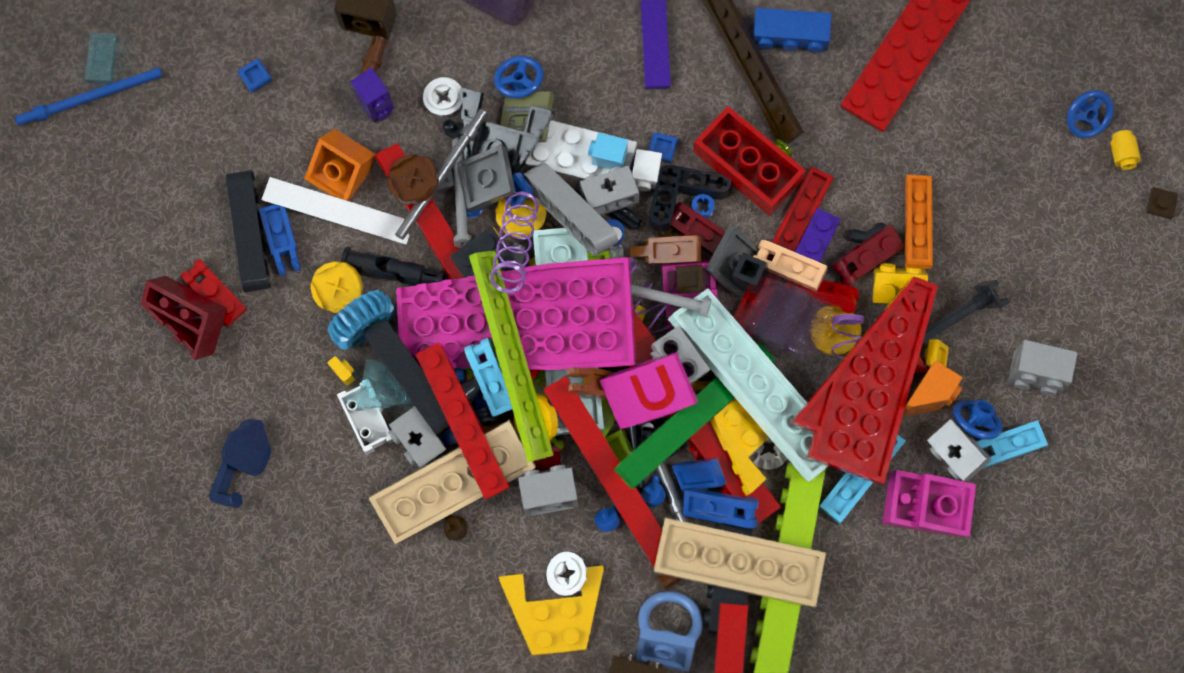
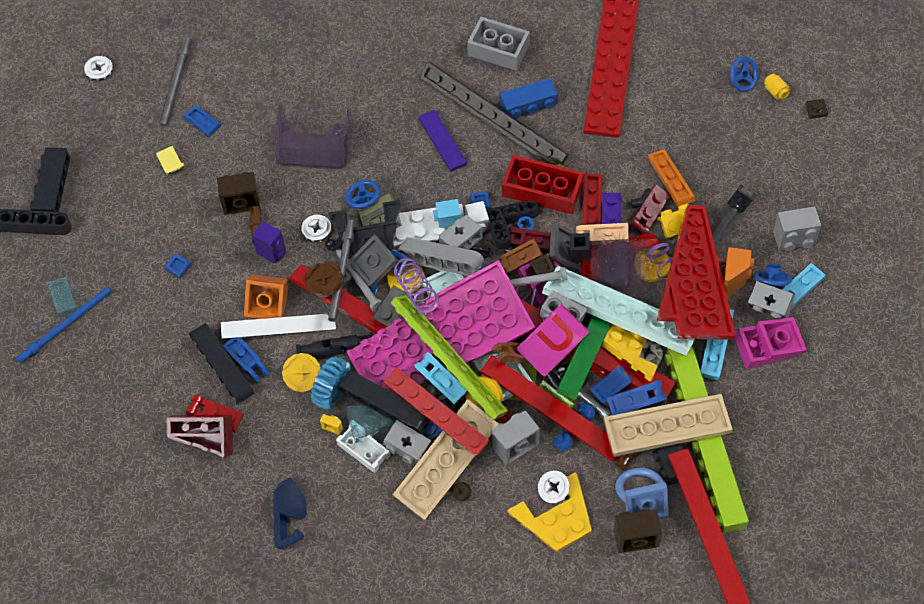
camera: 25 degrees left, 15 degrees down
(936, 351) = (723, 248): yellow plate -> none

